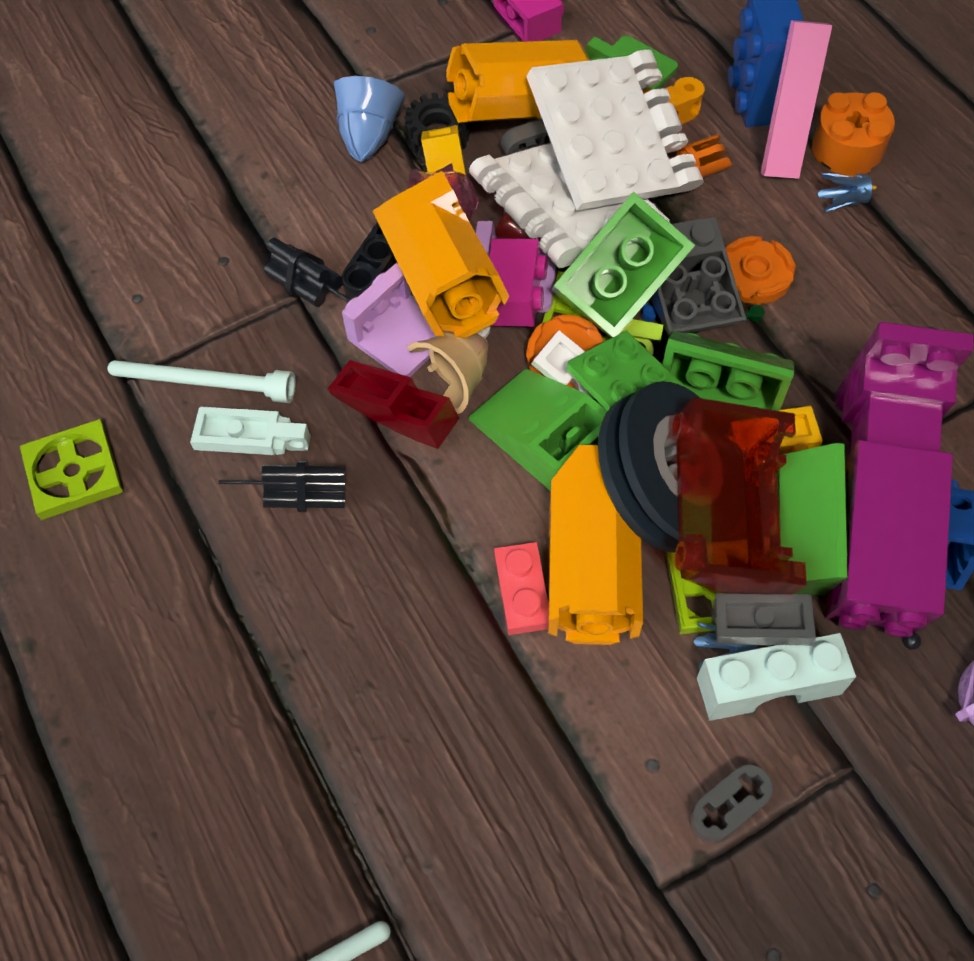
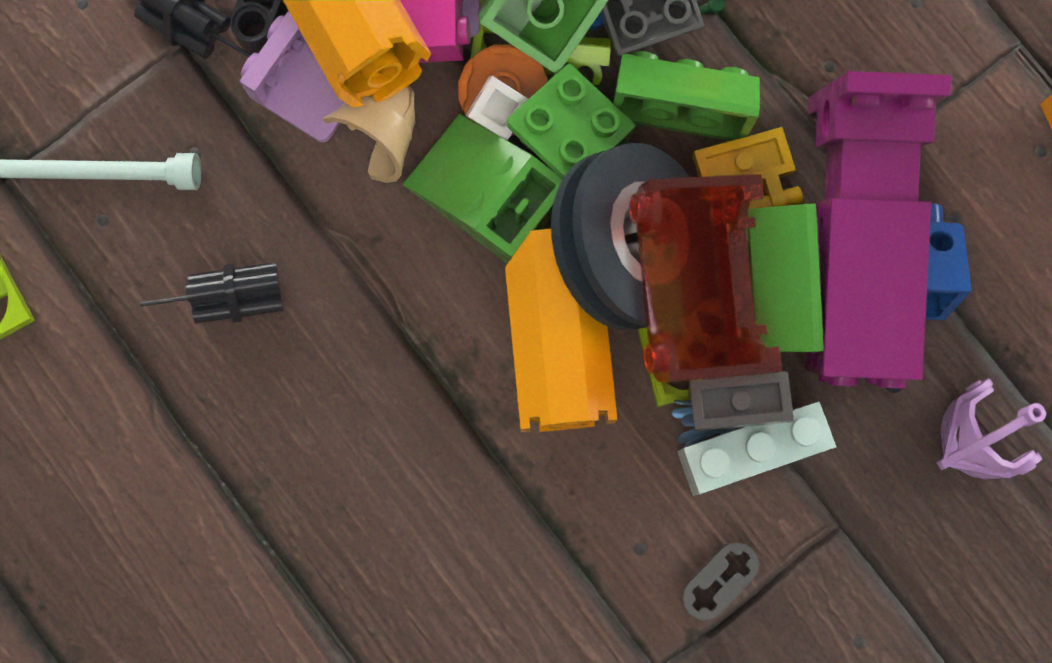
camera: 10 degrees left, 20 degrees up
(247, 432) = (157, 234): light aqua hinge -> none
(395, 402) = (317, 176): dark red slope -> none
(522, 588) = (487, 379): coral plate -> none

